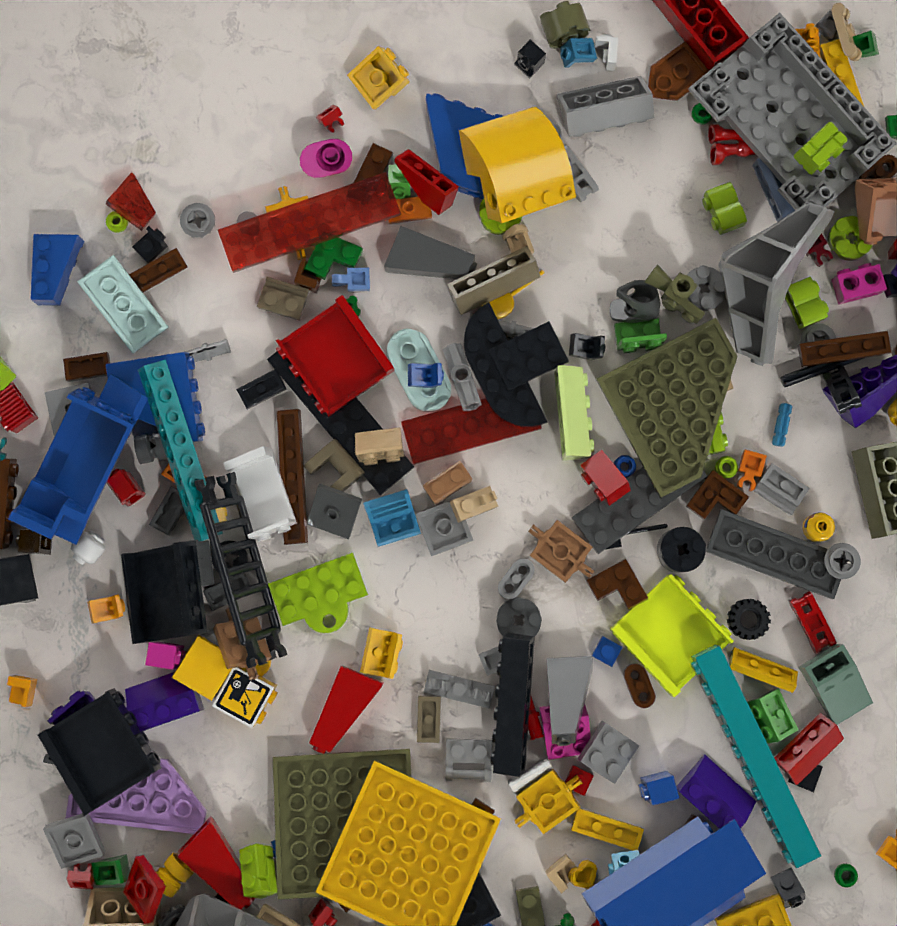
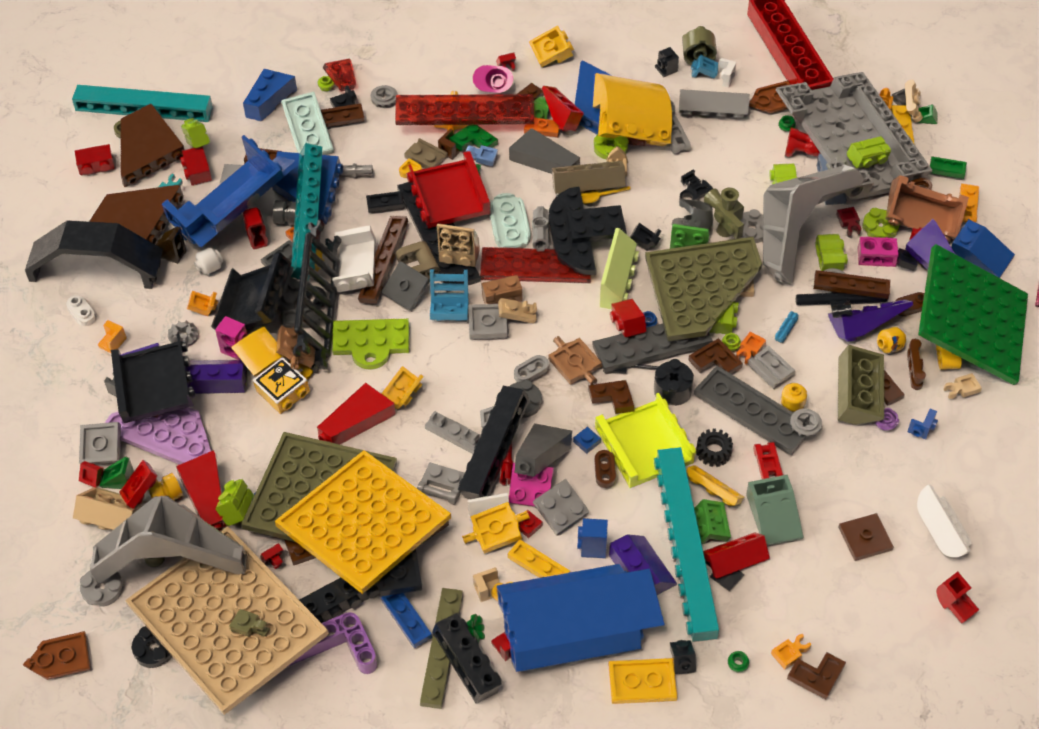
camera: 20 degrees right, 30 degrees down
(110, 650) = (190, 328): none -> light grey gear
(272, 326) = (404, 168): none -> yellow tile
(425, 375) = (512, 219): blue bracket -> none
(428, 719) = (421, 444): dark tan plate -> none
(624, 249) = (695, 189): none -> black piece

